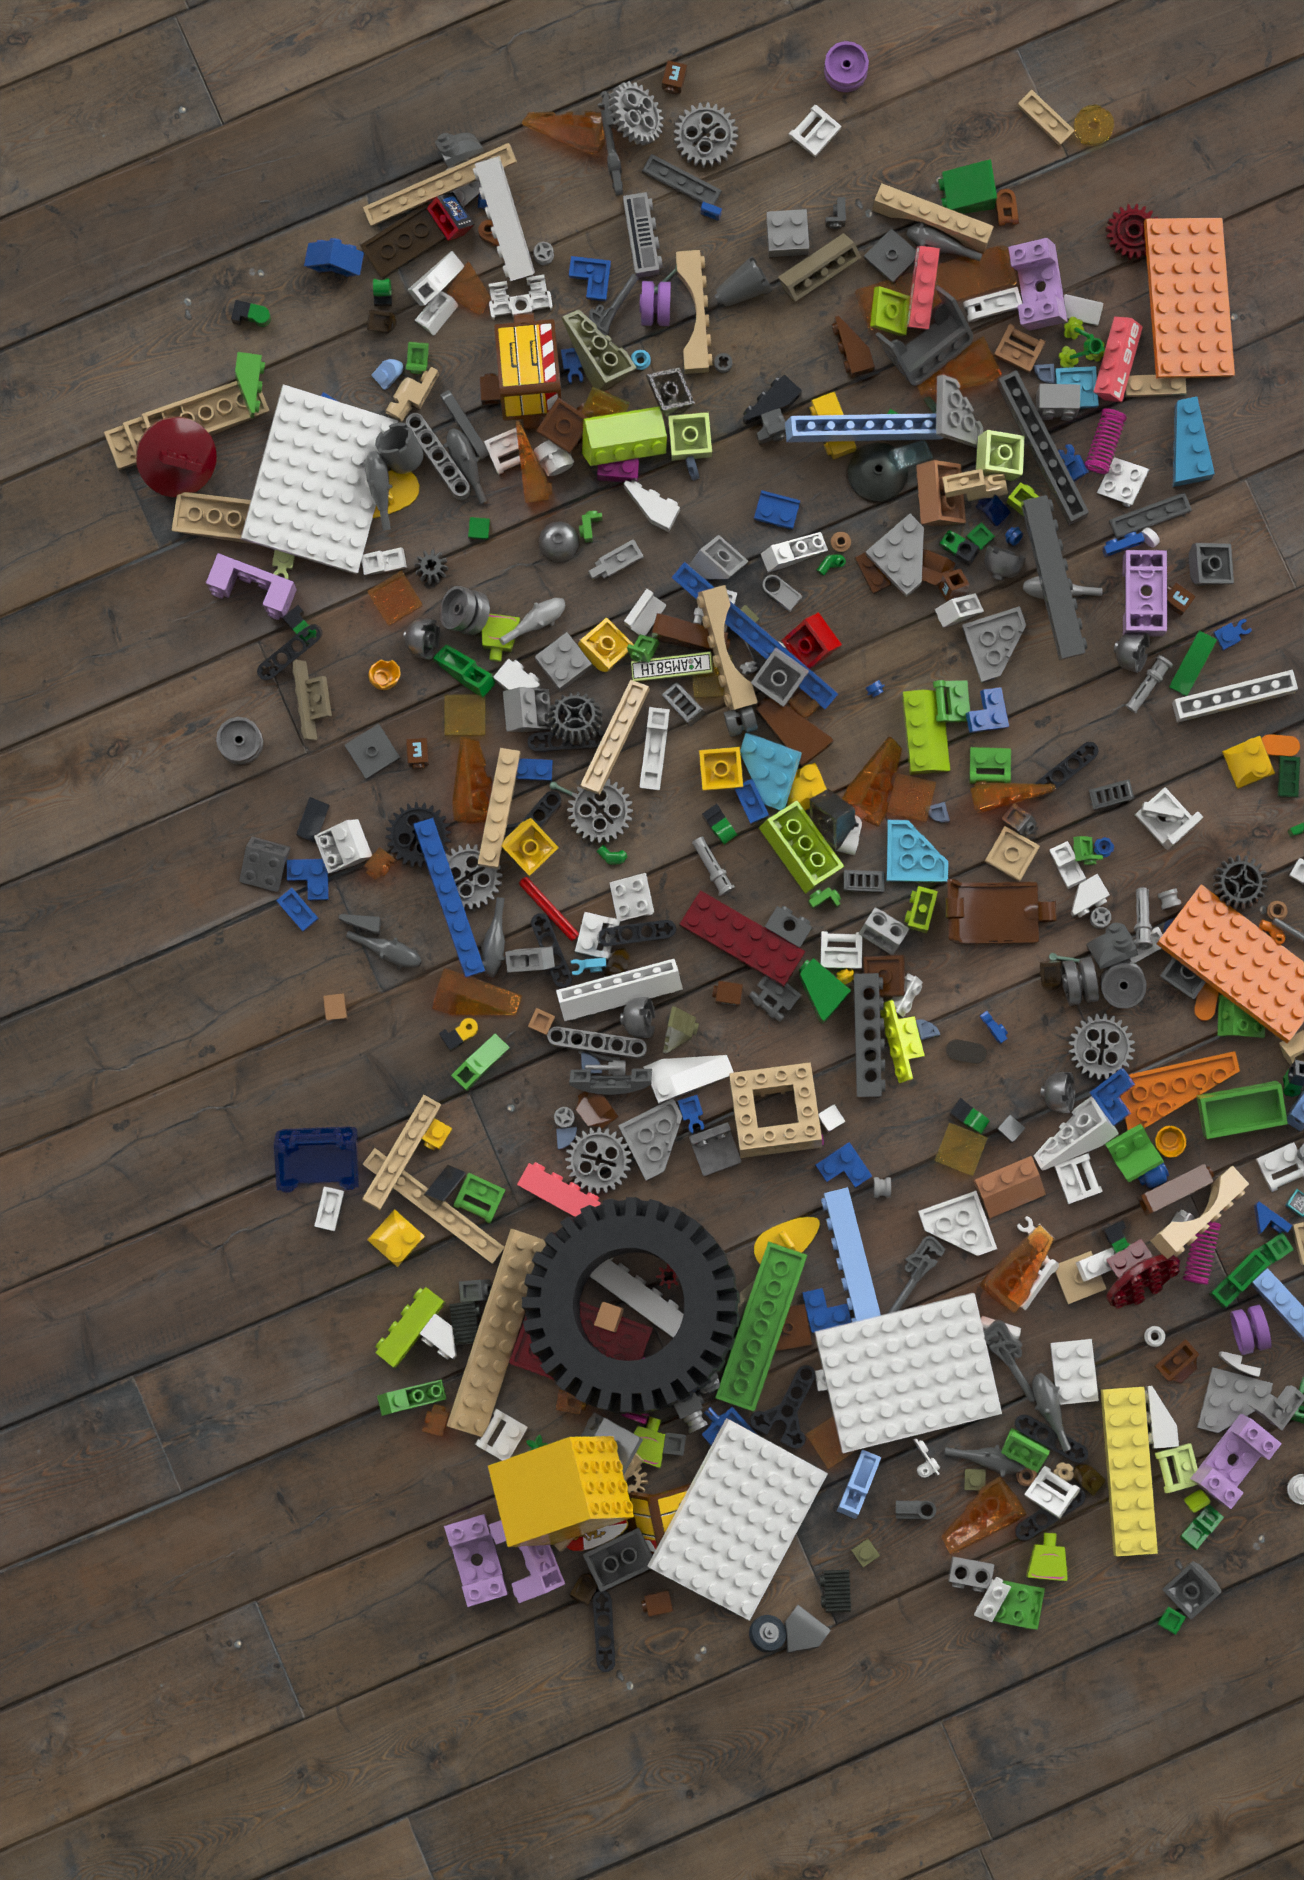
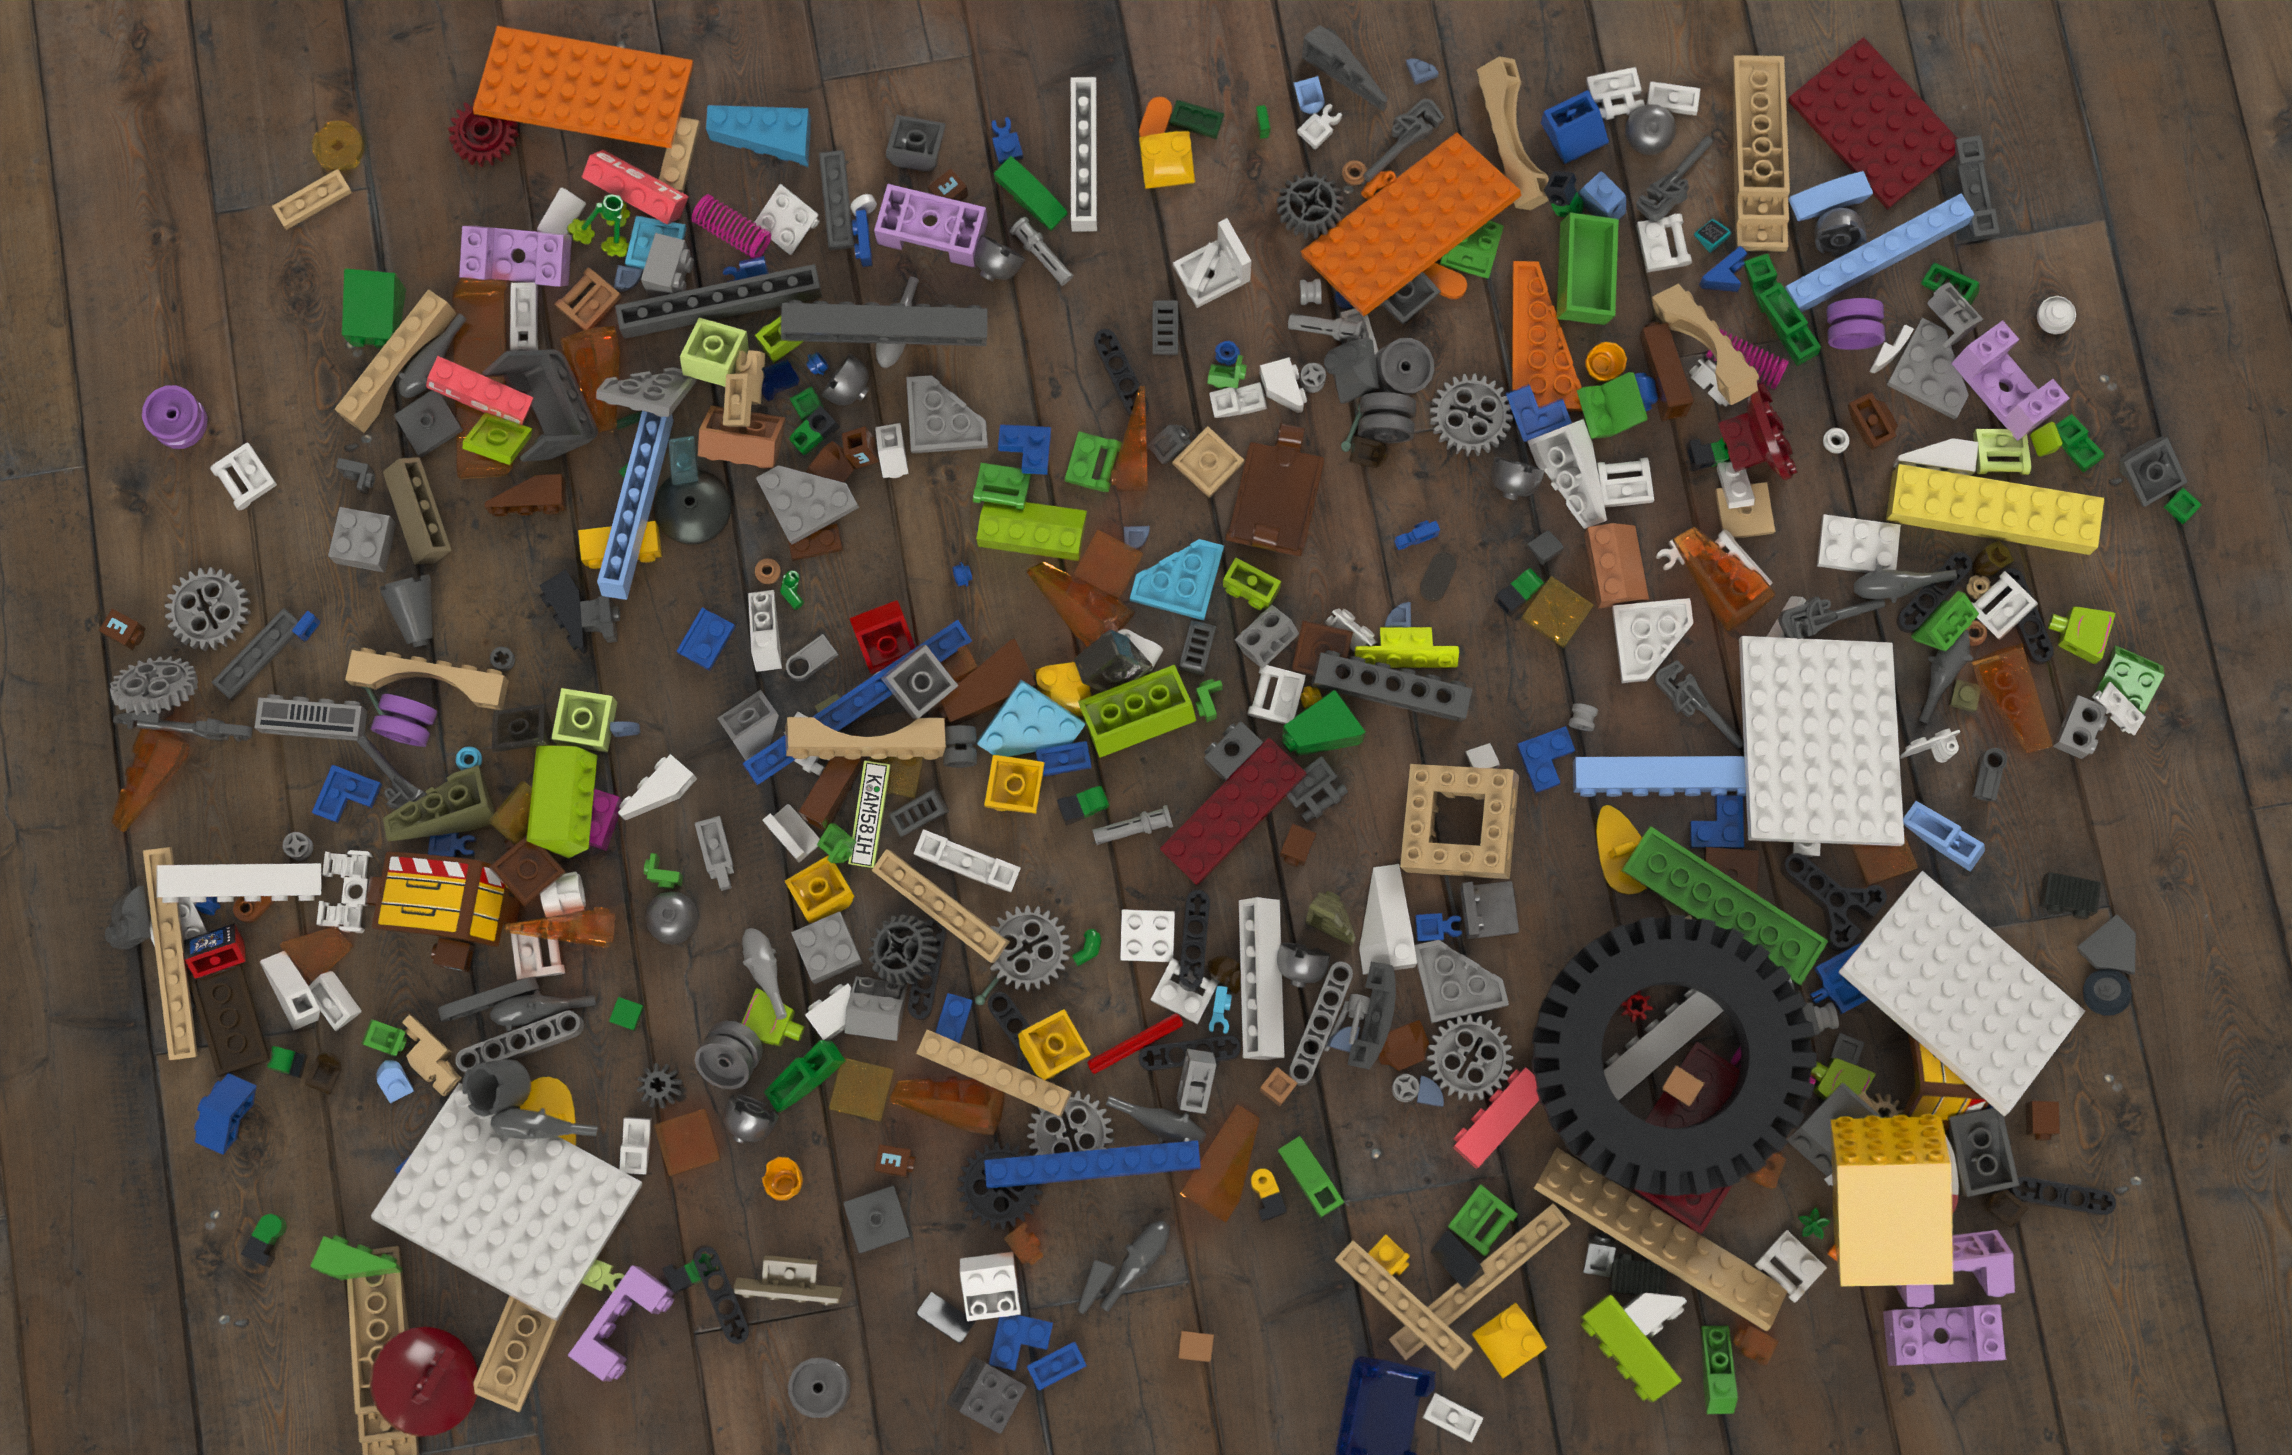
camera: 75 degrees left, 5 degrees down
(749, 667) = (896, 718): light grey axle -> none
(865, 1552) = (2028, 849): olive plate -> none
(1006, 201) = (403, 269): dark orange plate -> none

